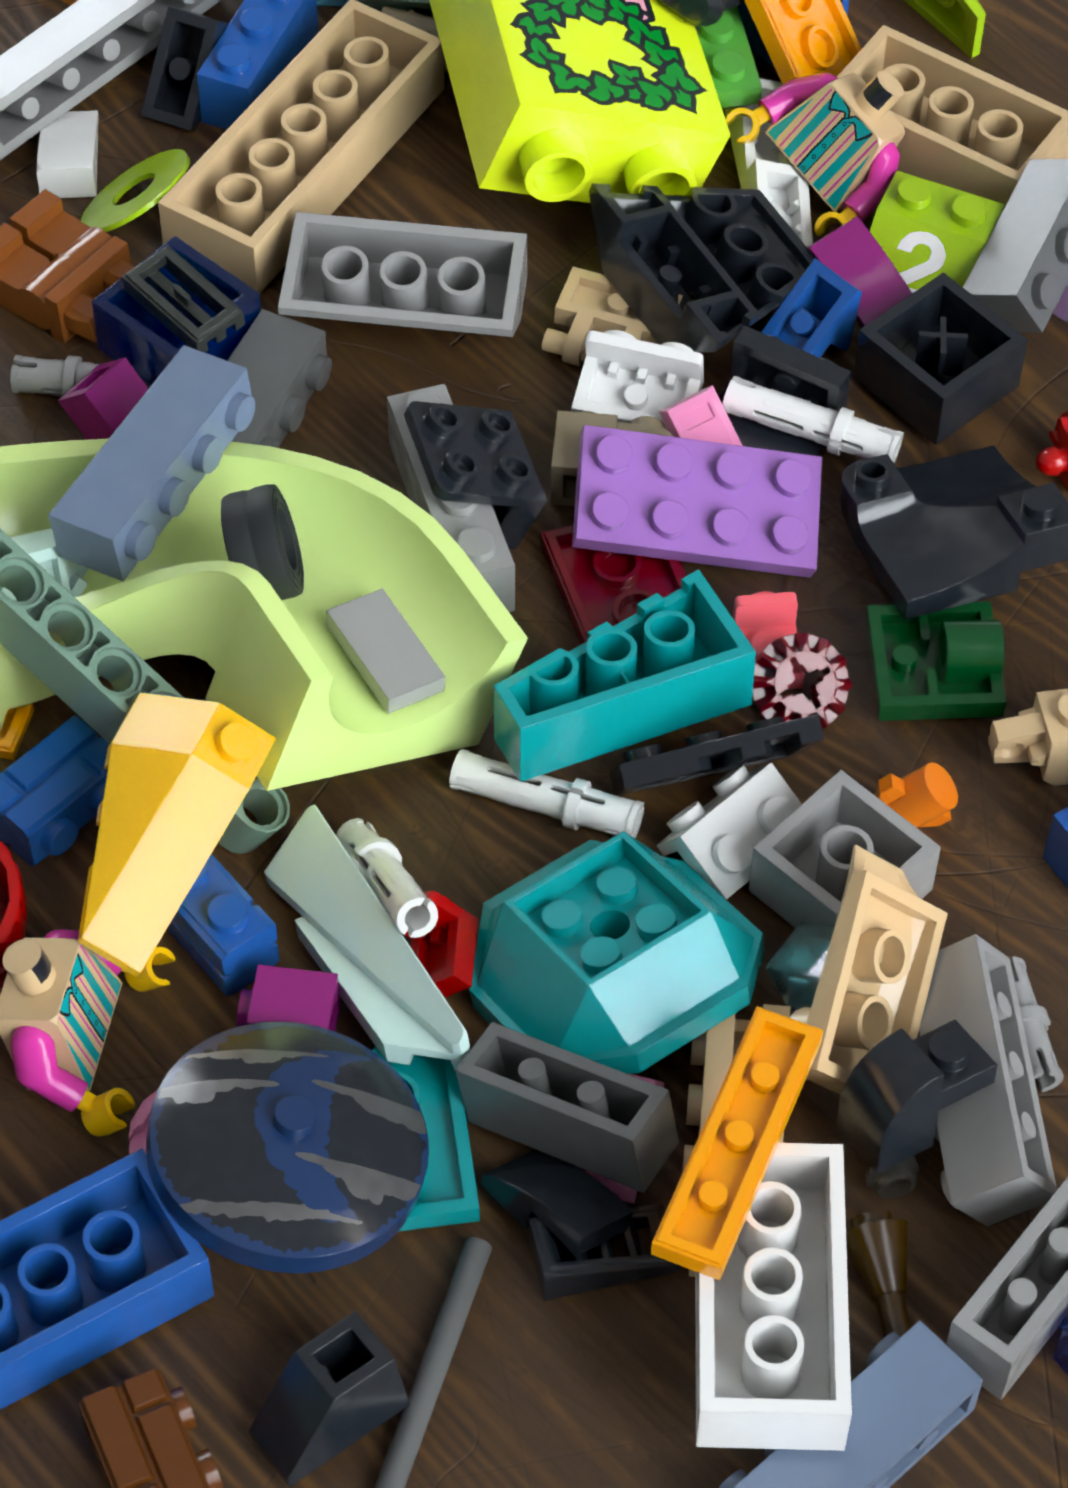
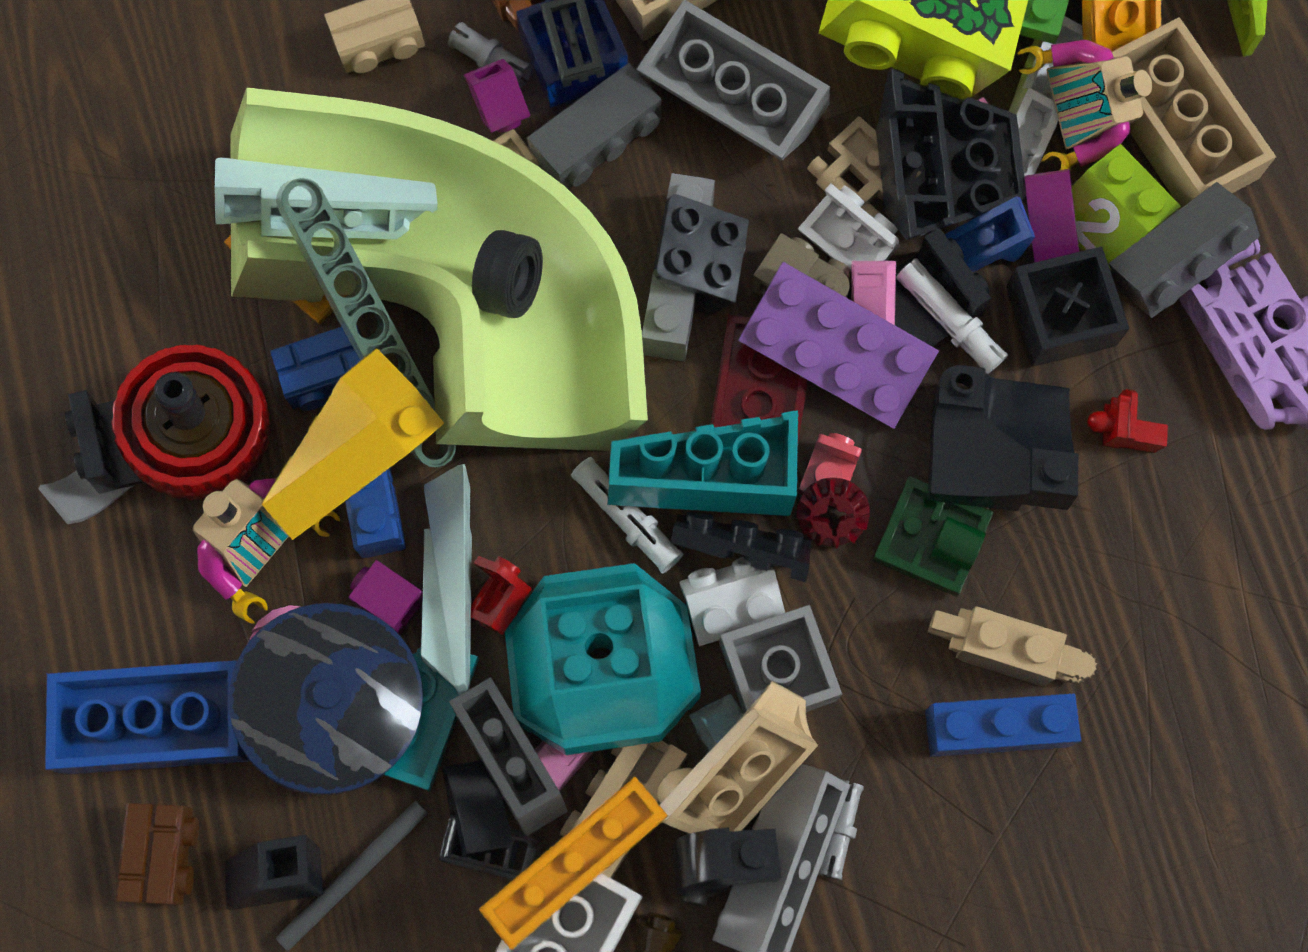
camera: 30 degrees right, 20 degrees up
(152, 463) = (476, 172): sand blue brick -> none
(385, 650) = (560, 378): light grey tile -> none
(392, 884) = (486, 524): white pin -> none
(921, 796) = (857, 637): orange piece -> none

